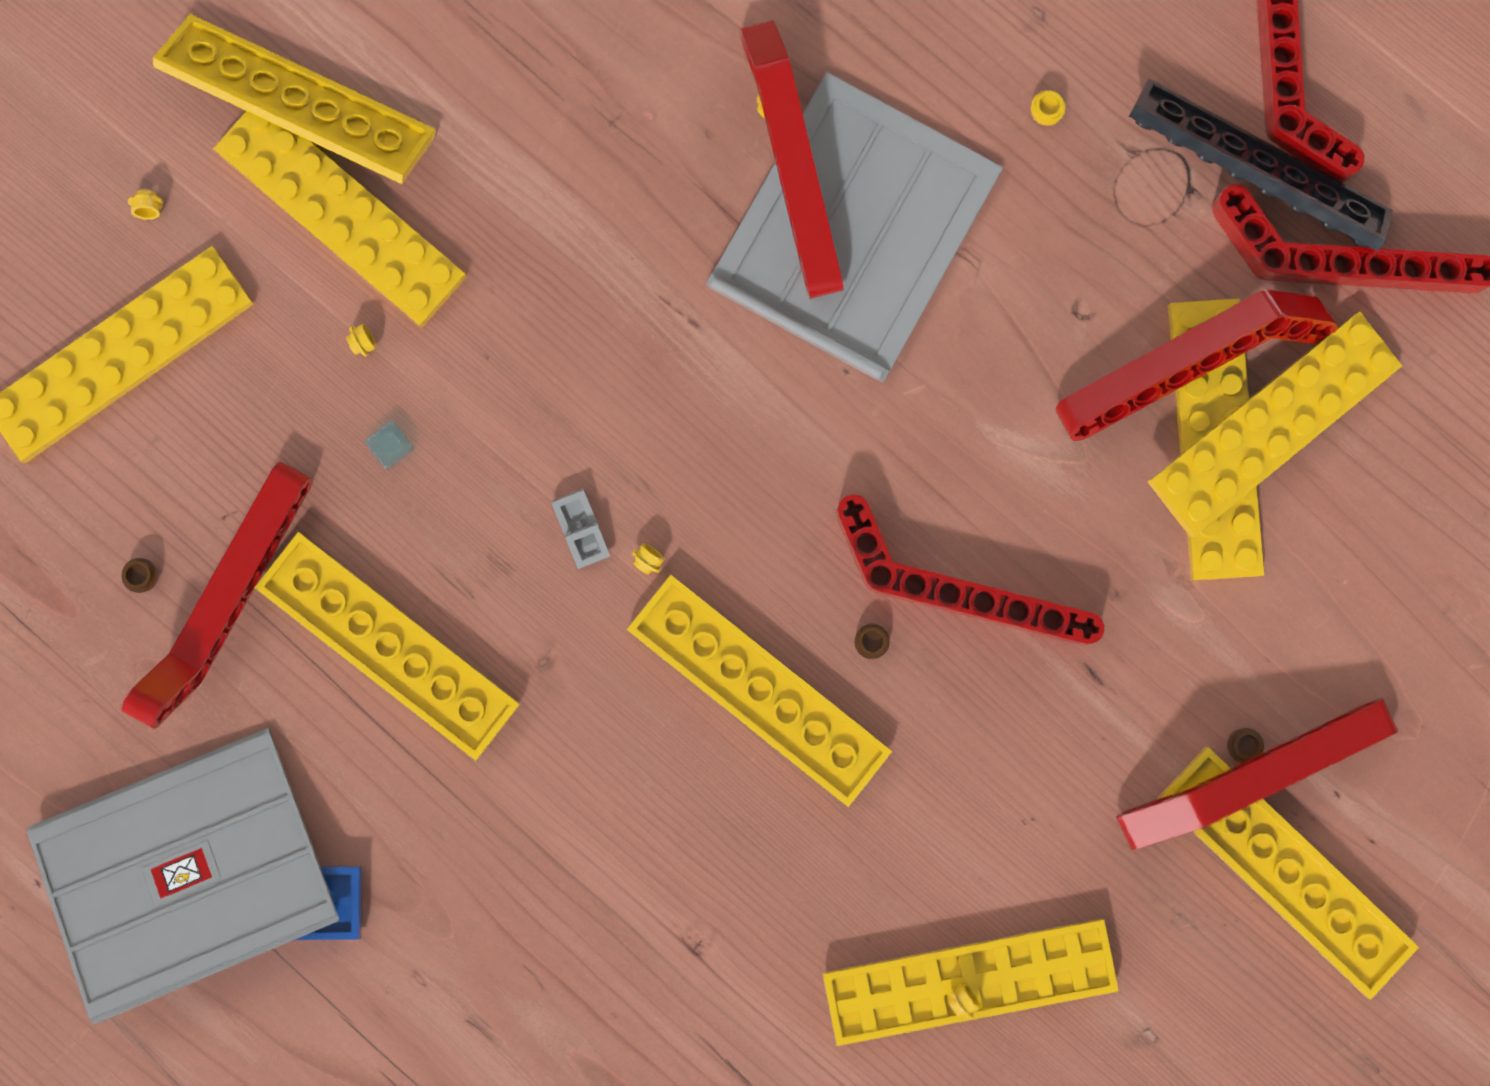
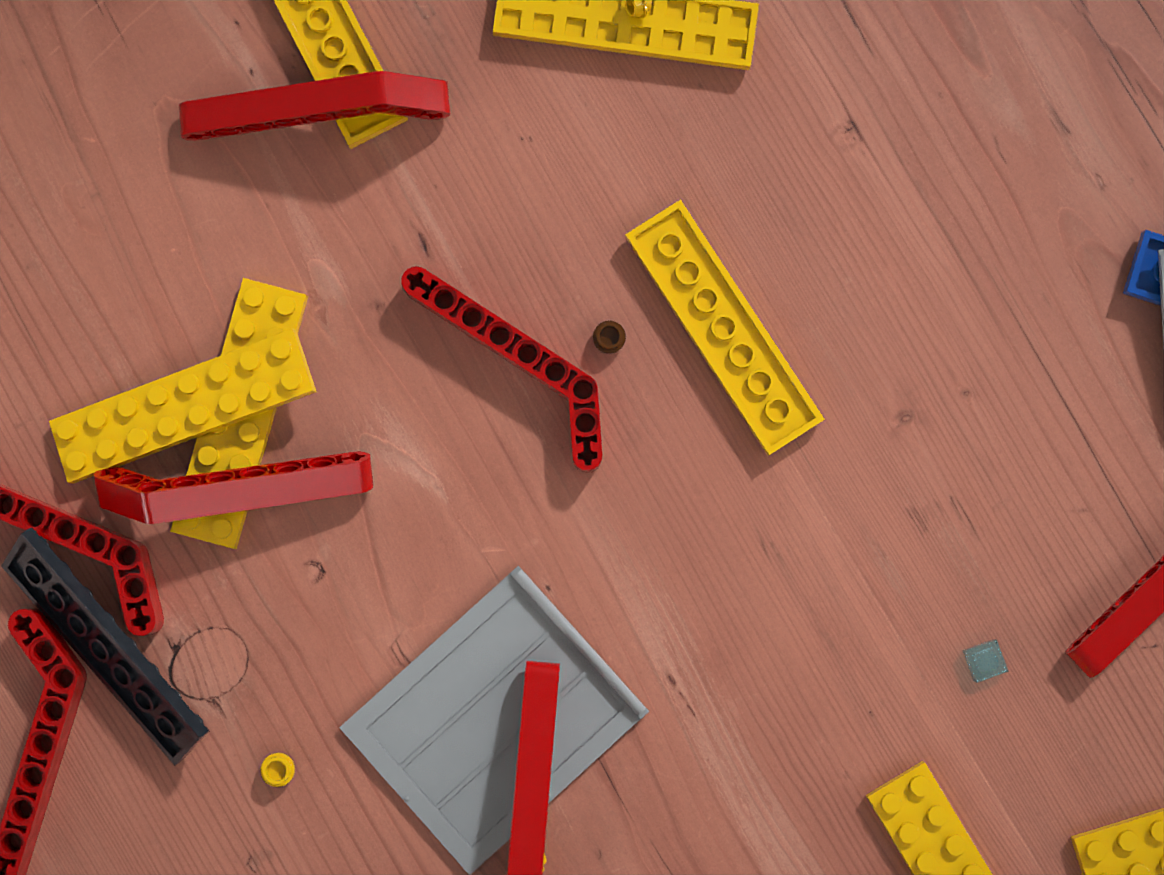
camera: 165 degrees left, 0 degrees up
(361, 340) = (982, 766): yellow plate -> none
(387, 646) = (1043, 478): yellow plate -> none
(580, 528) = (835, 525): light grey slope -> none
(647, 559) = (784, 476): yellow plate -> none
(1245, 744) = (315, 138): reddish brown plate -> none

